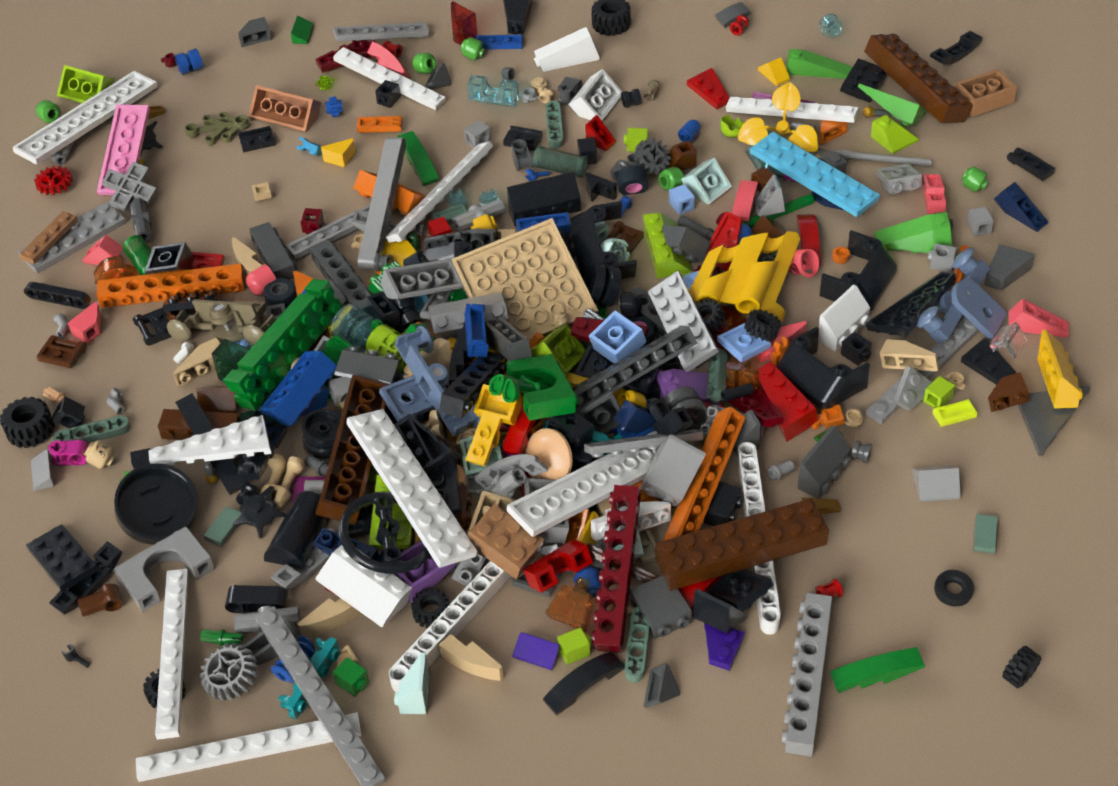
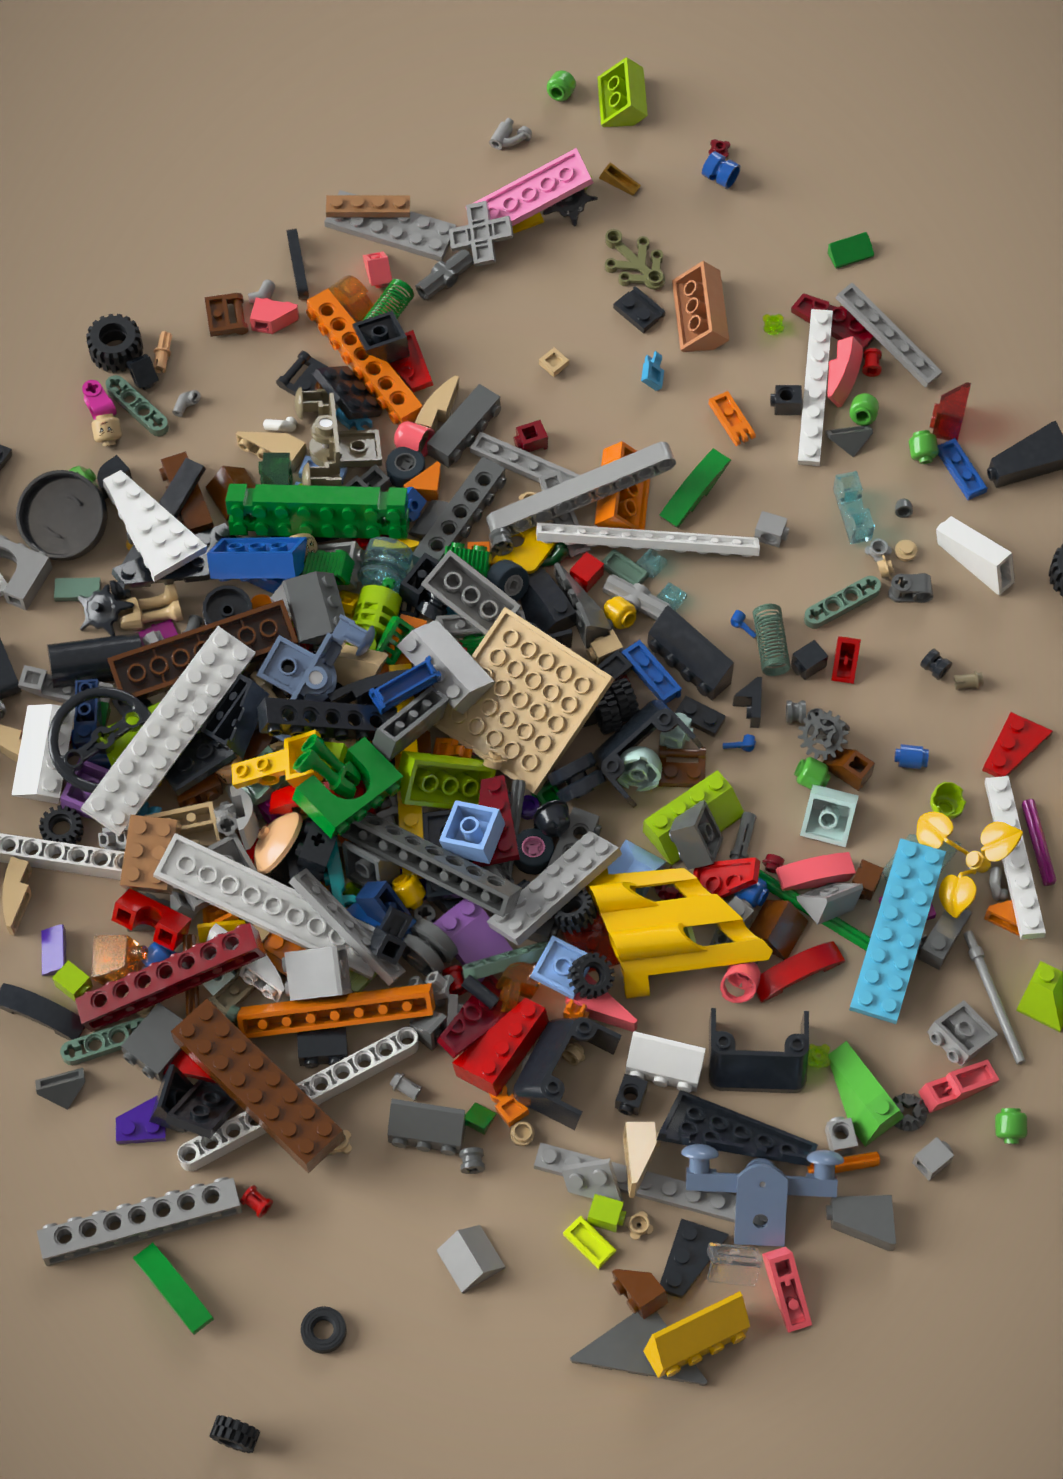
camera: 60 degrees right, 15 degrees up
(42, 471) = (66, 394): light grey slope -> none
(53, 180) = (459, 157): red gear -> none
(84, 117) = (569, 127): white plate -> none
(254, 32) = (815, 205): dark grey slope -> none
(334, 106) = (731, 357): blue gear -> none
(339, 152) = (660, 405): yellow slope -> none
(521, 155) = (758, 594): dark grey piece -> none
(530, 136) = (798, 580): black plate -> none
(596, 96) = (913, 626): white slope -> none
(632, 180) = (780, 732): black wheel -> none
(634, 137) = (862, 705): lime brick -> none
(681, 199) = (782, 800): light blue brick -> none
(826, 506) = (373, 1147): pearl gold piece -> none
(840, 255) = (789, 1018): orange tile -> none
(985, 533) = (418, 1337): sand green tile -> none
(1020, 207) = (987, 1202): dark blue slope -> none

